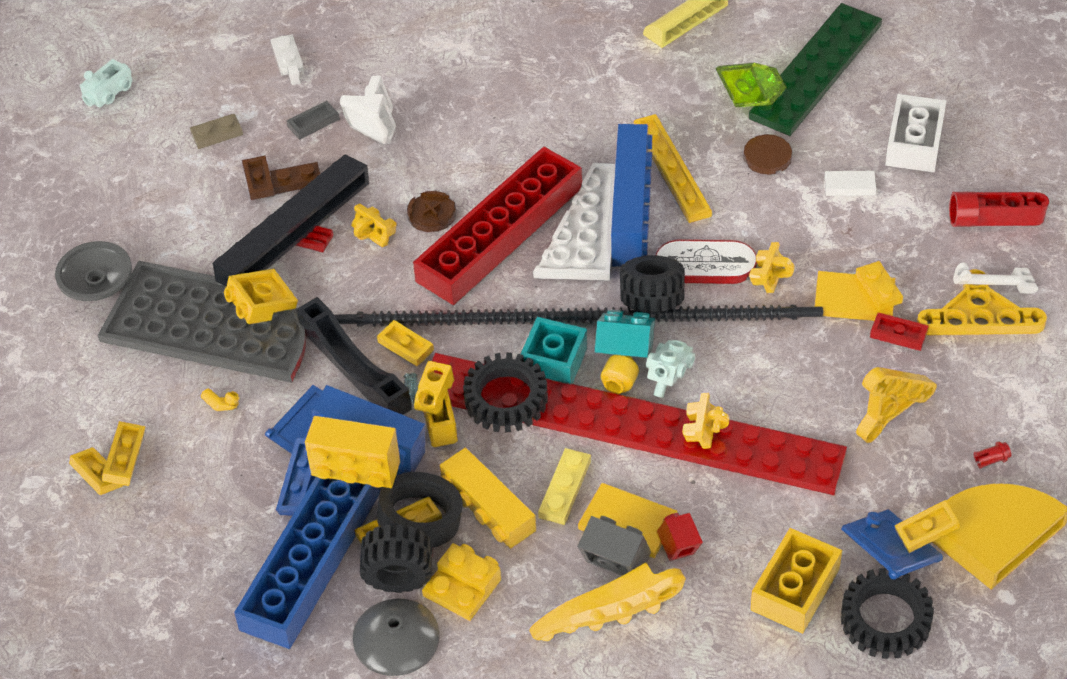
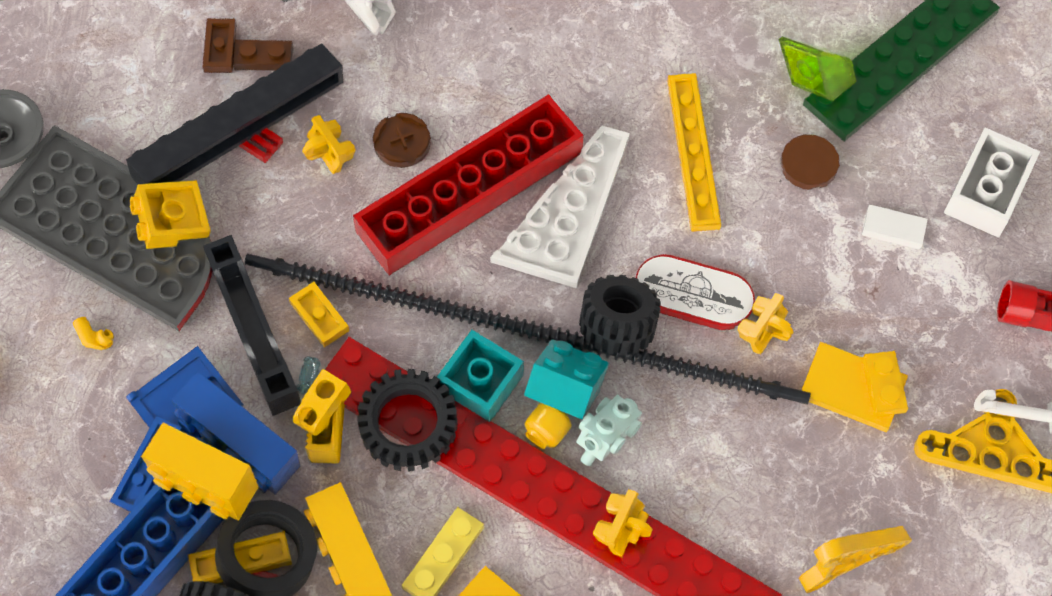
camera: 10 degrees right, 15 degrees up
(631, 193) = (631, 185): blue brick -> none
(899, 331) = (890, 451): red plate -> none

